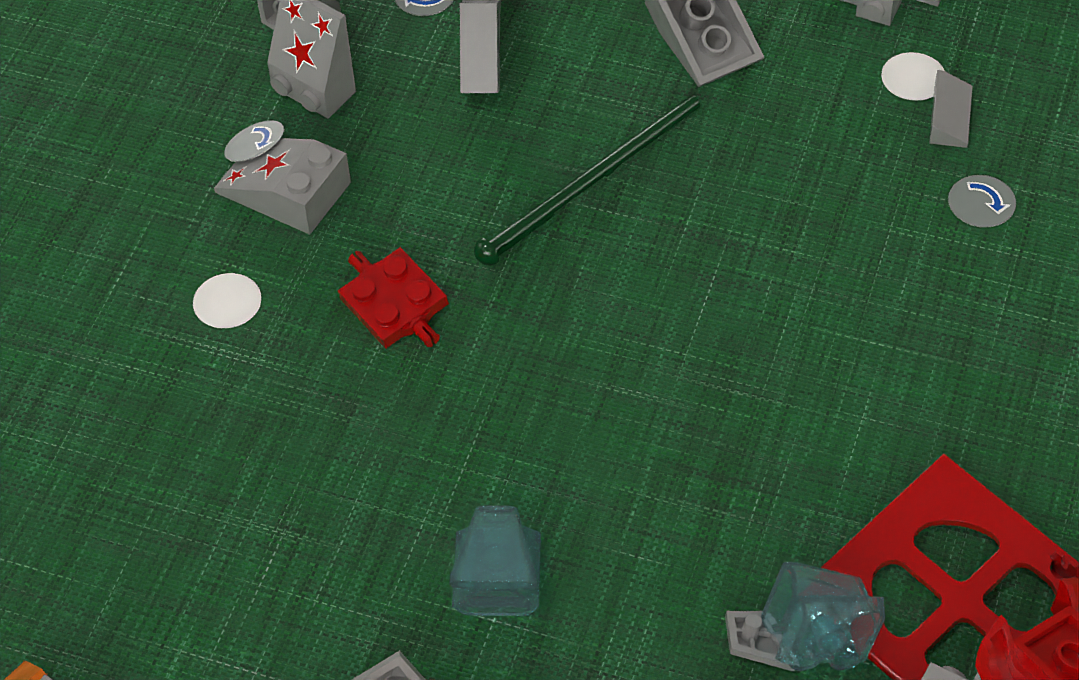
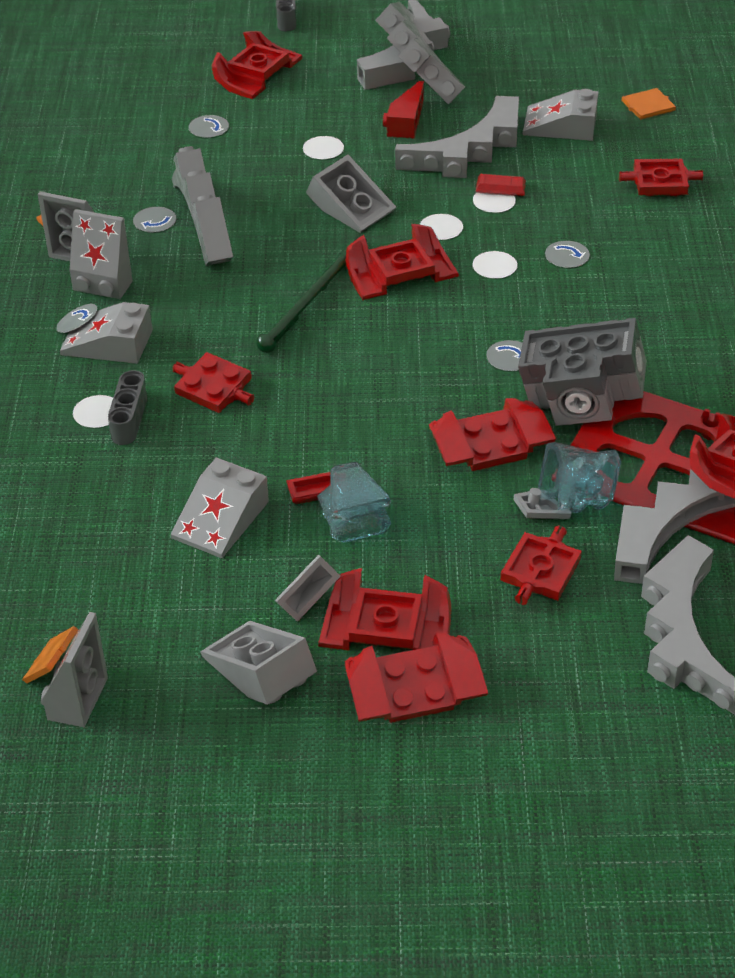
camera: 20 degrees left, 10 degrees down
(262, 311) = (127, 407): none -> dark grey beam
(319, 515) = (221, 507): none -> light grey slope
(454, 511) = (308, 488): none -> red tile
(727, 158) = (397, 262): none -> red piece
(734, 500) = (493, 436): none -> red piece
(818, 105) = (444, 225): none -> white sticker
(825, 360) = (505, 355): none -> light grey sticker
(868, 193) = (494, 264): none -> white sticker
(899, 436) = (583, 369): none -> dark grey piece
(932, 53) = (501, 184): none -> red tile
(950, 111) = (526, 211): light grey slope -> none

